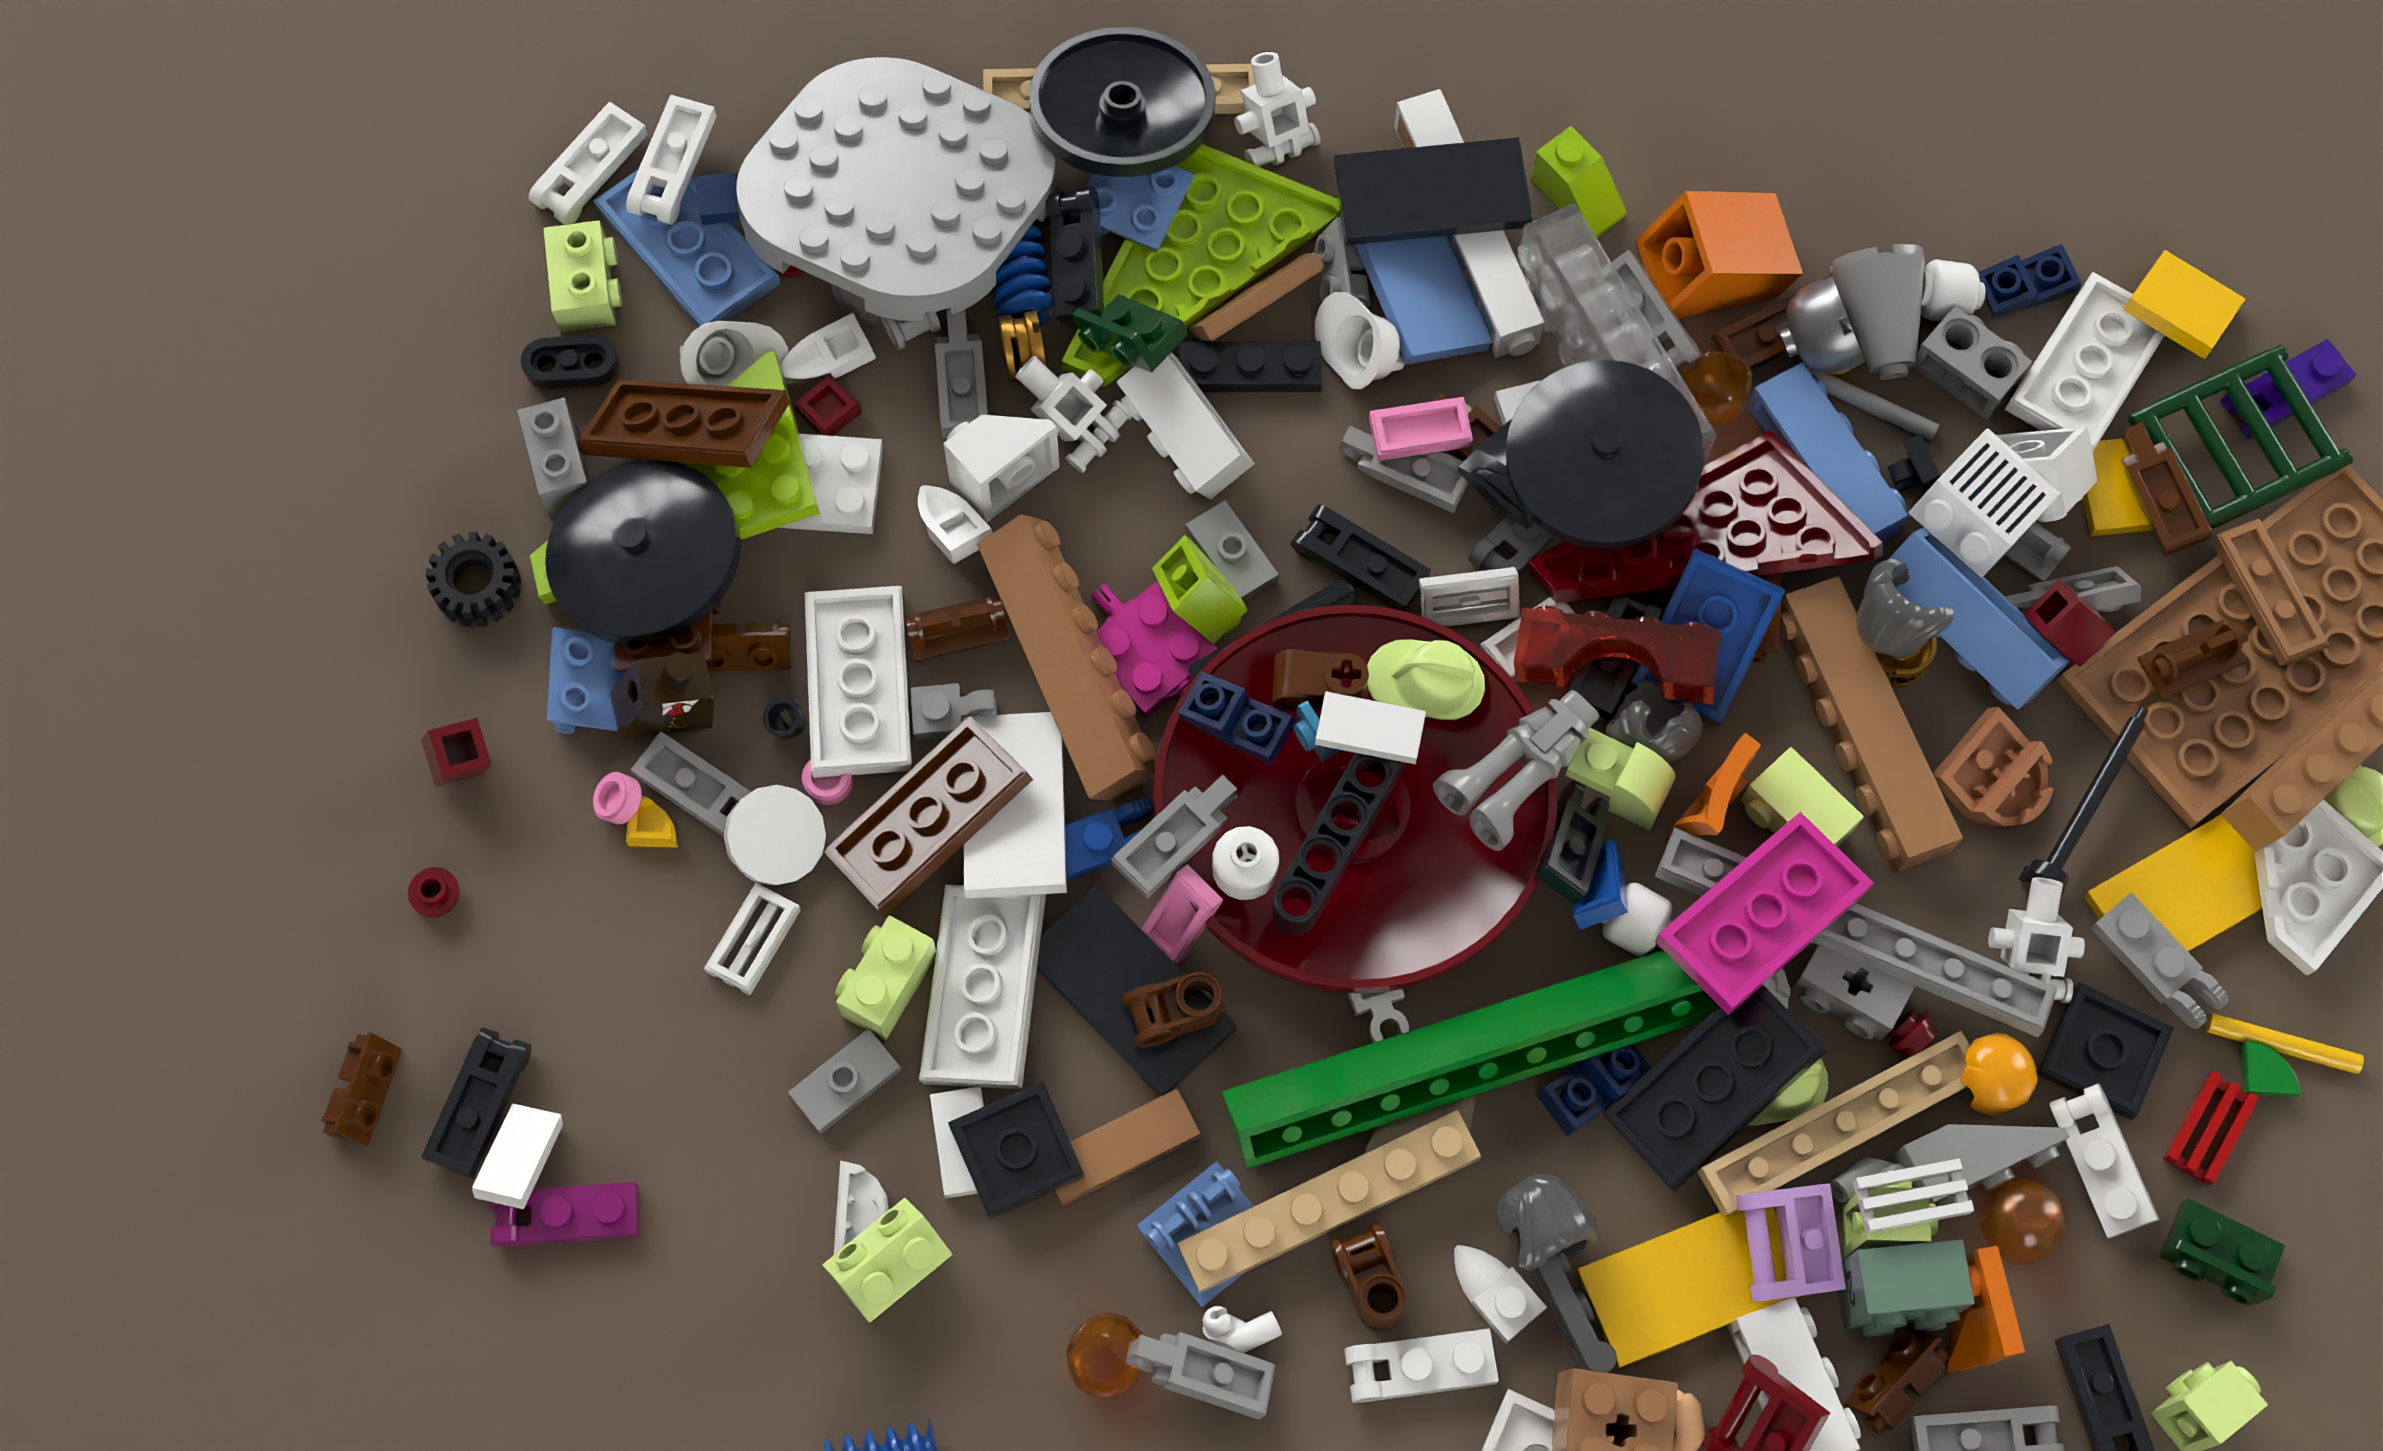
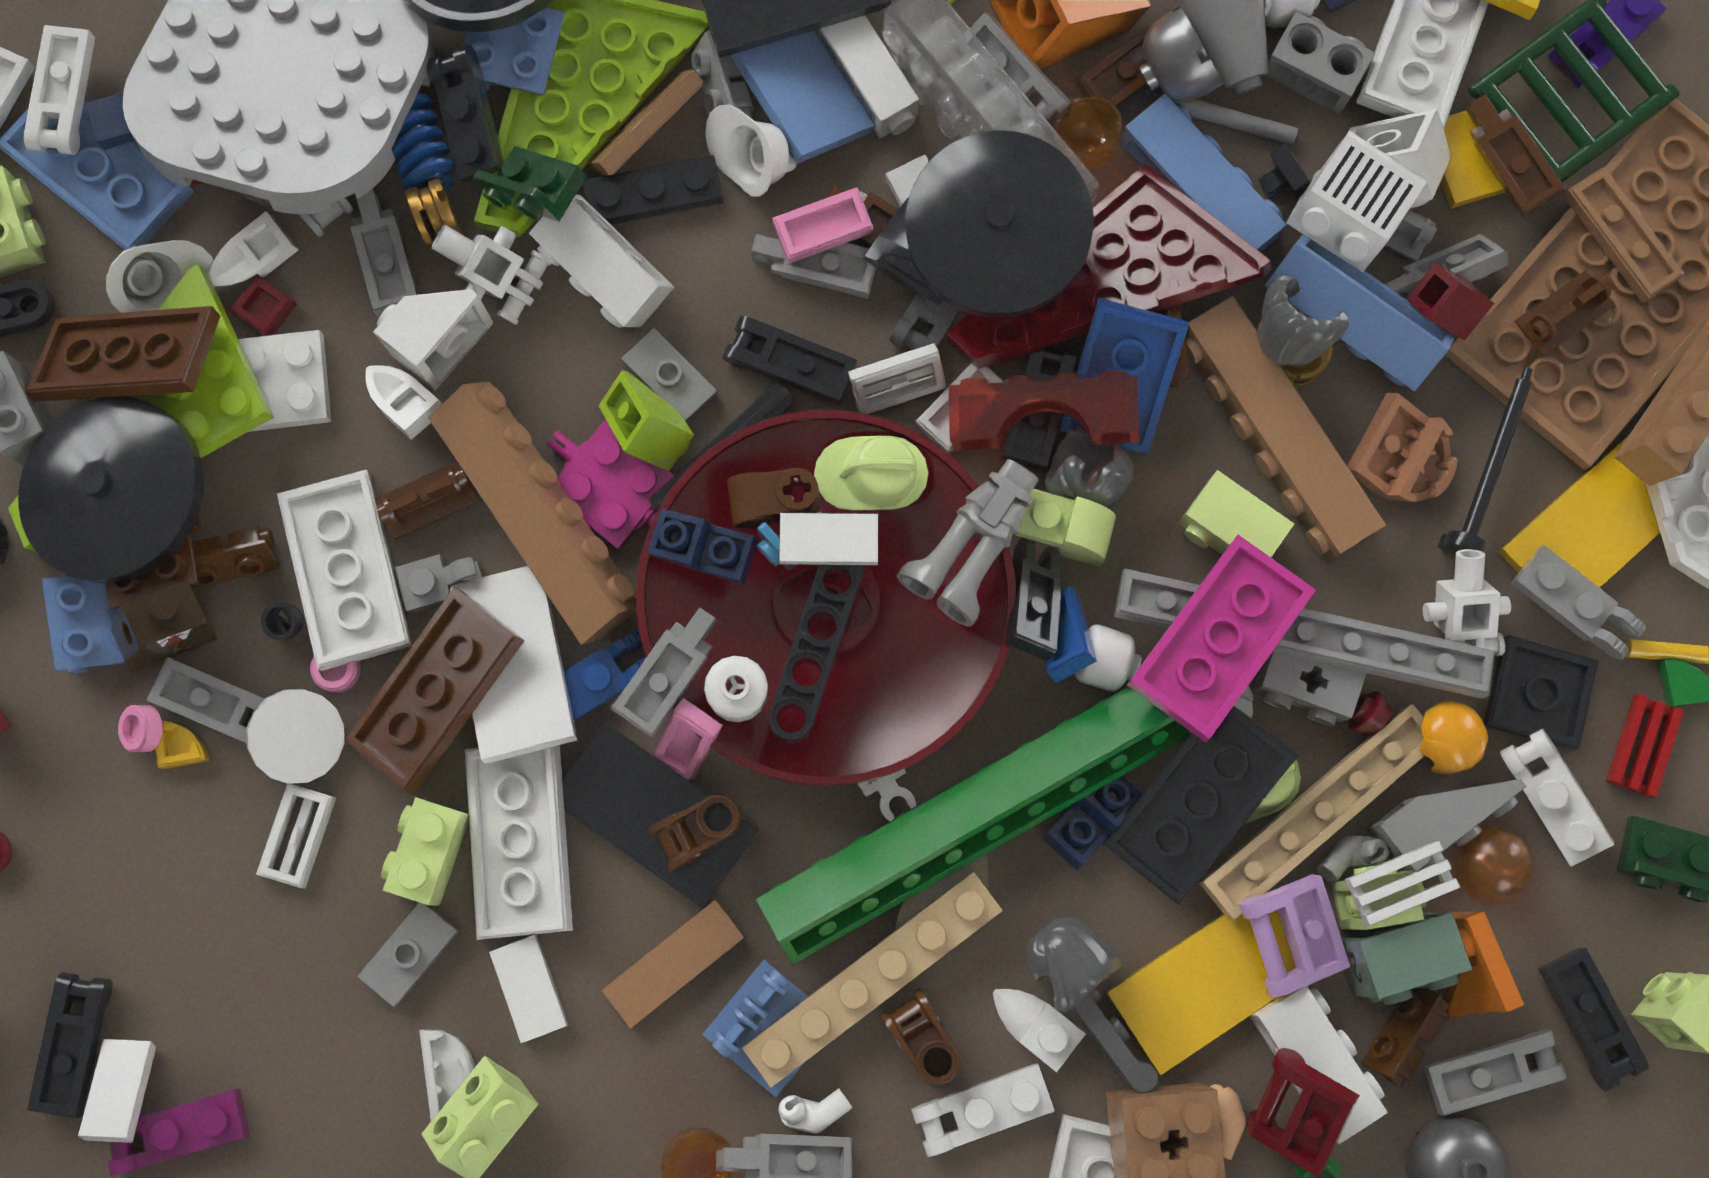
camera: 15 degrees left, 10 degrees up
(1016, 1150) = (578, 989): black tile -> none
(1709, 809) = (1153, 539): orange plate -> none

